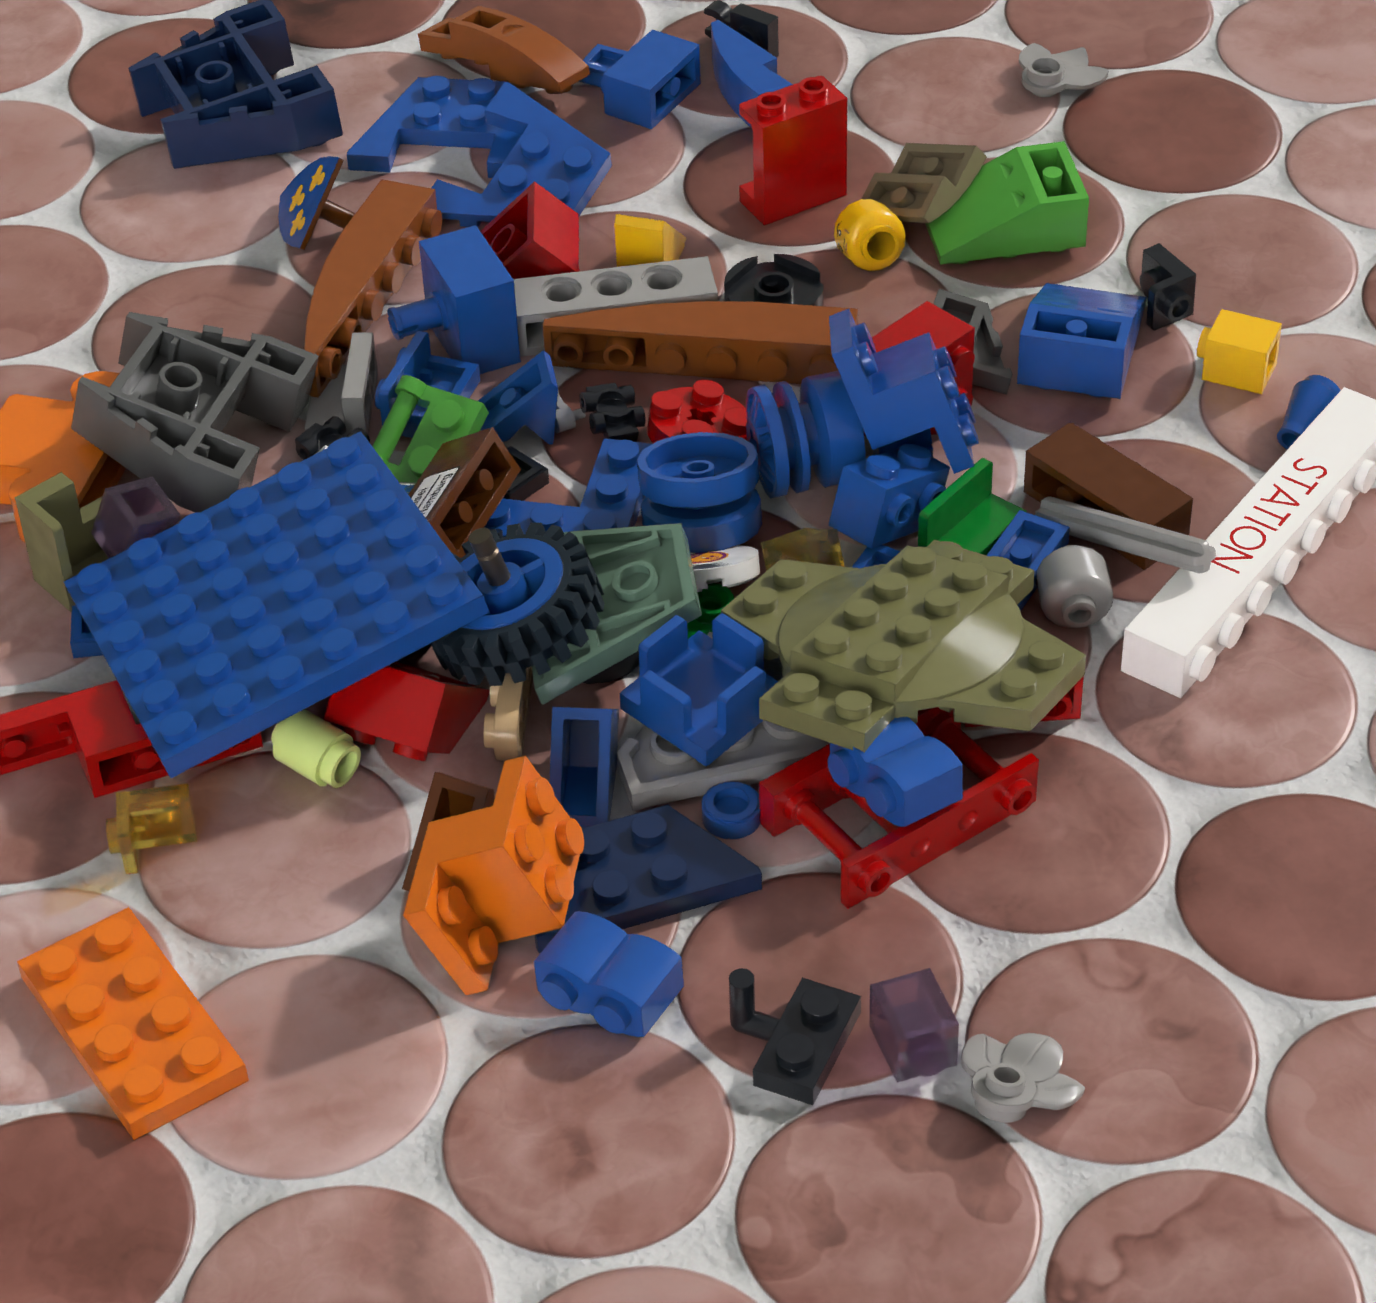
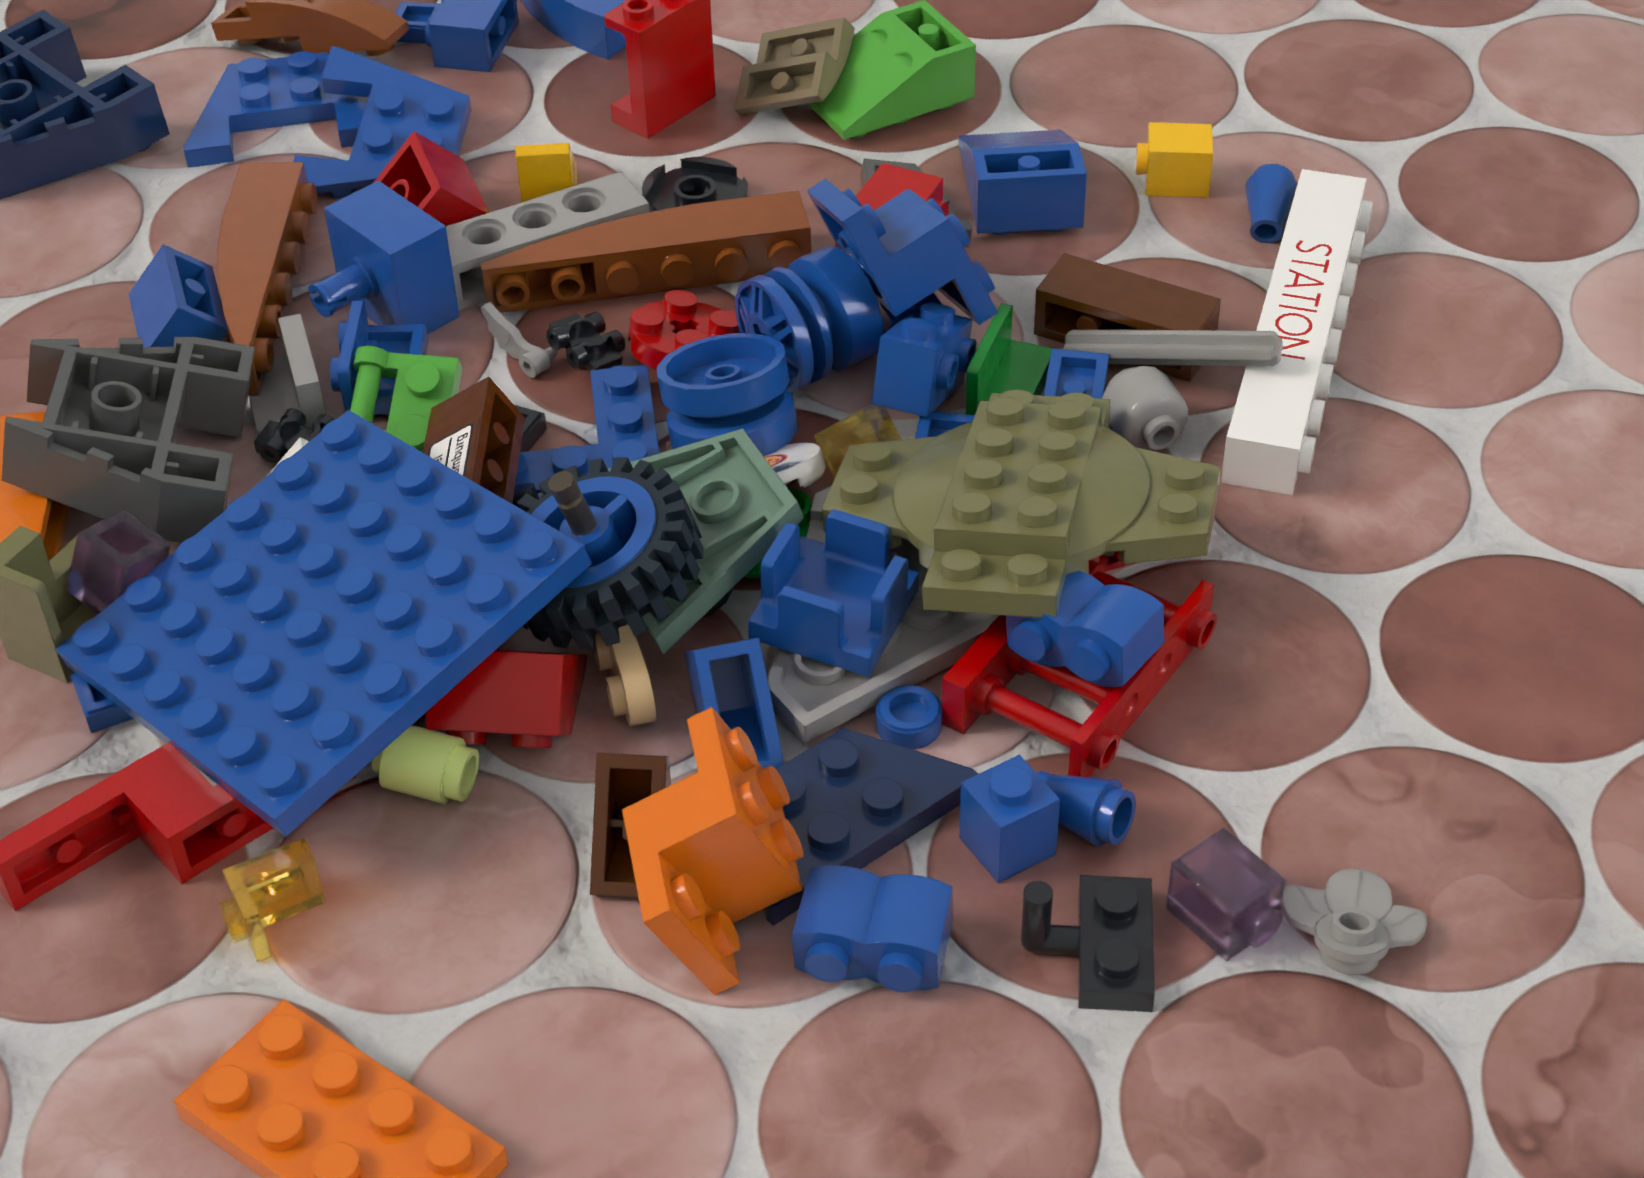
camera: 20 degrees left, 0 degrees up
(277, 299) = (176, 300): none -> blue brick
(307, 201) = (165, 200): shield -> none
(524, 399) = (497, 345): blue slope -> none
(762, 914) = (1009, 818): none -> blue brick
(839, 924) = (1093, 807): none -> blue cone
(869, 235) = (766, 124): yellow head -> none
(1167, 286) = (1076, 112): black bracket -> none

